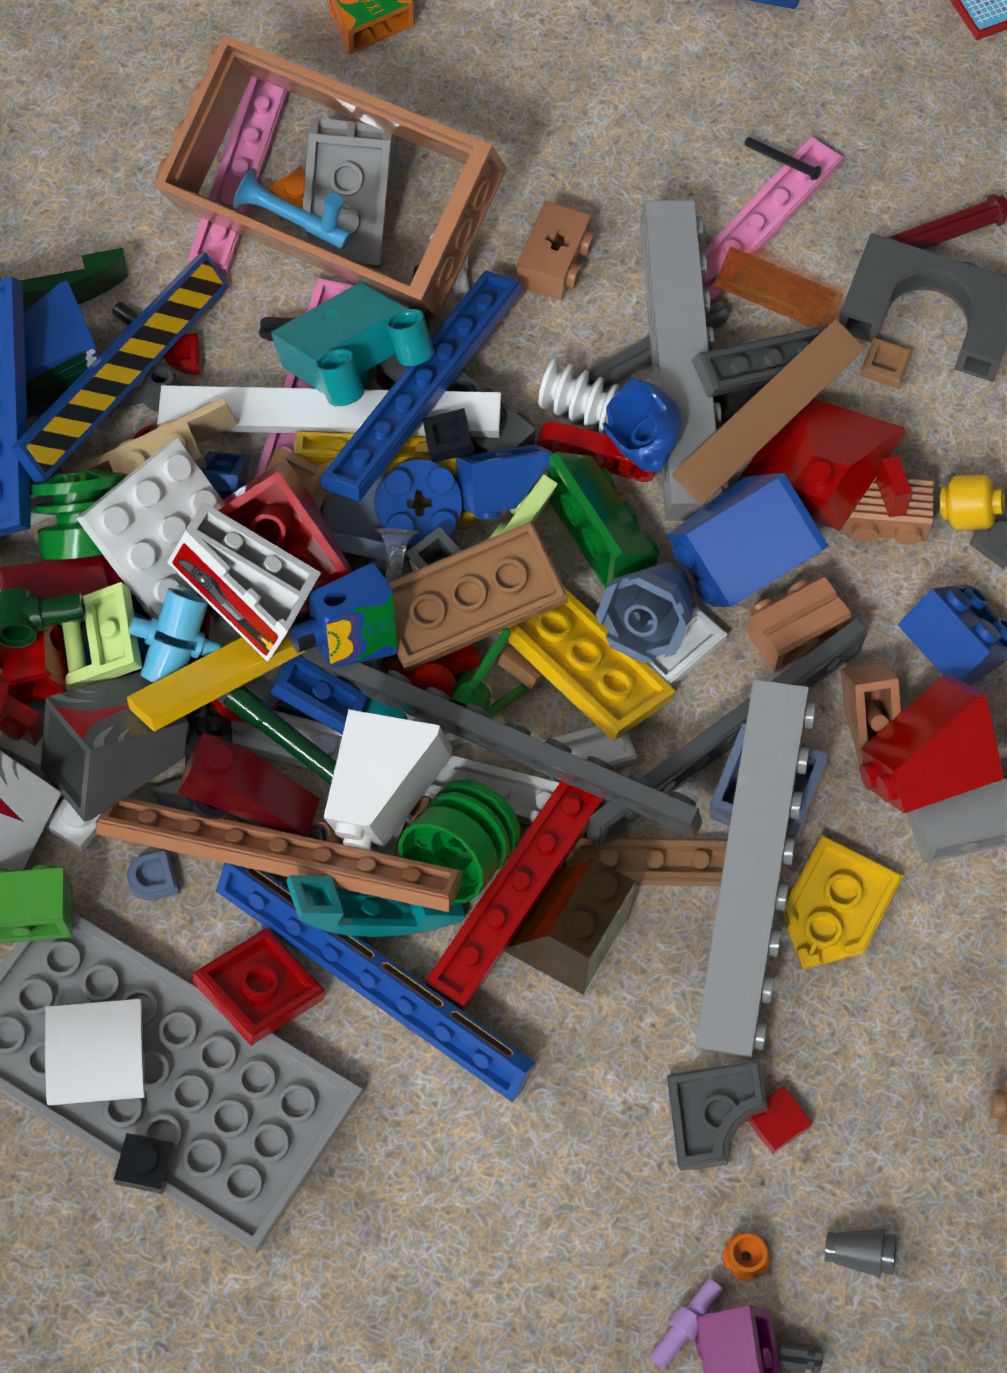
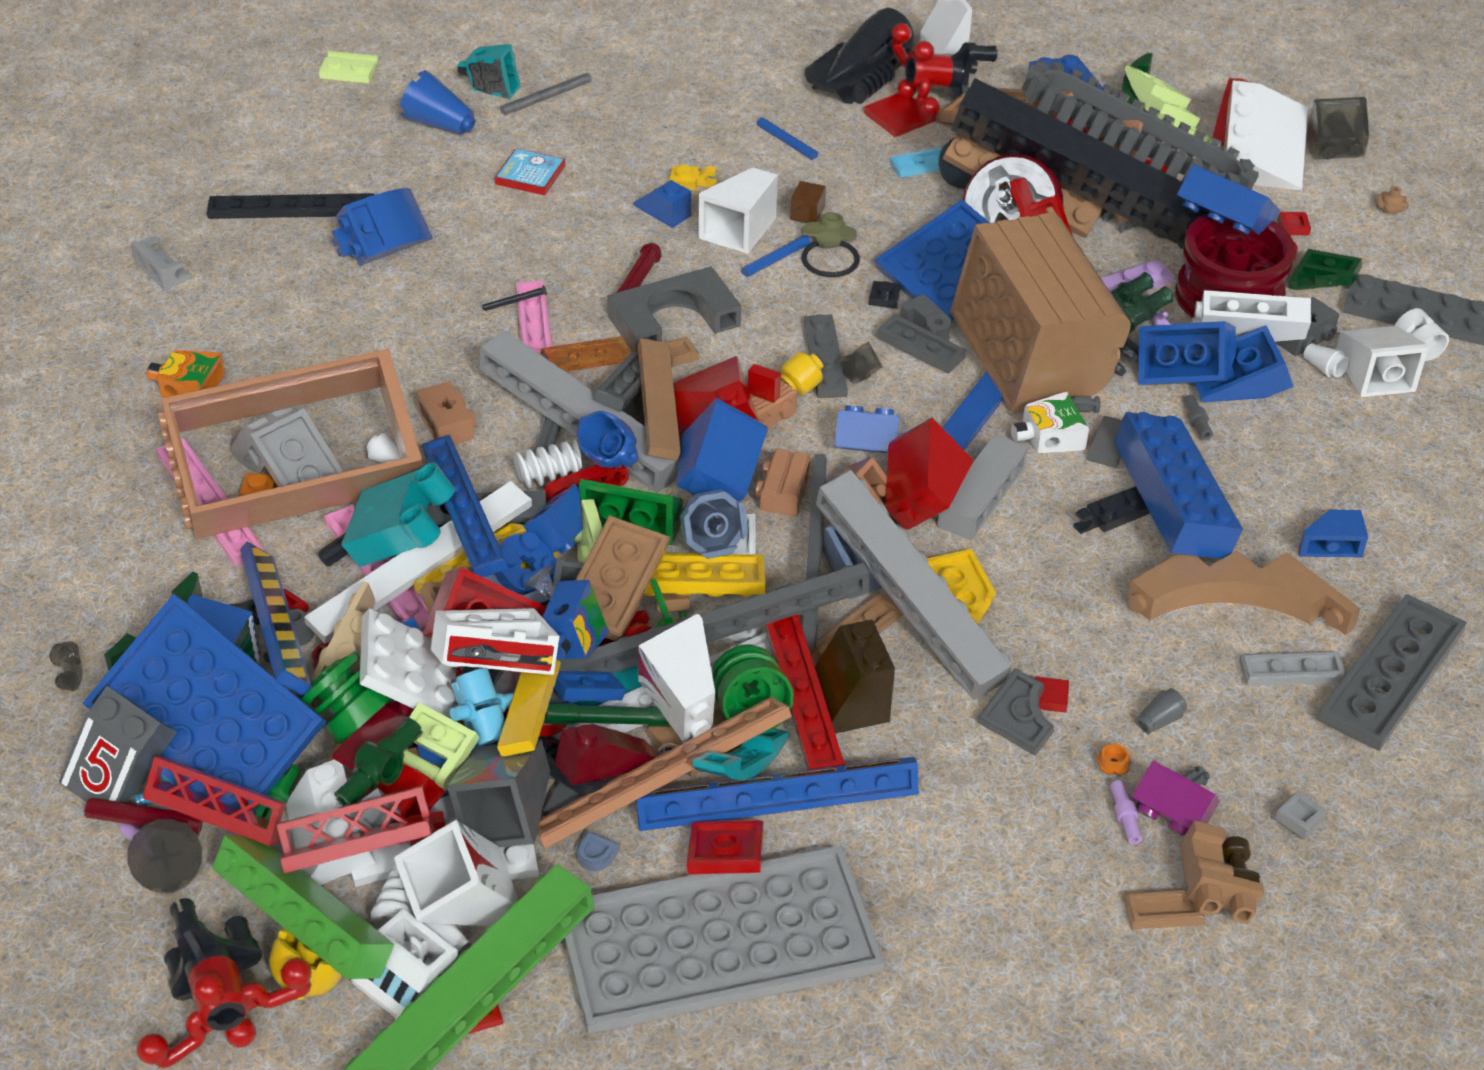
camera: 45 degrees left, 20 degrees down
(94, 1052) = (682, 943): white slope -> none
(144, 1163) = (777, 972): black plate -> none
(324, 227) = (329, 459): dark azure piece -> none
(448, 435) = (510, 515): black plate -> none

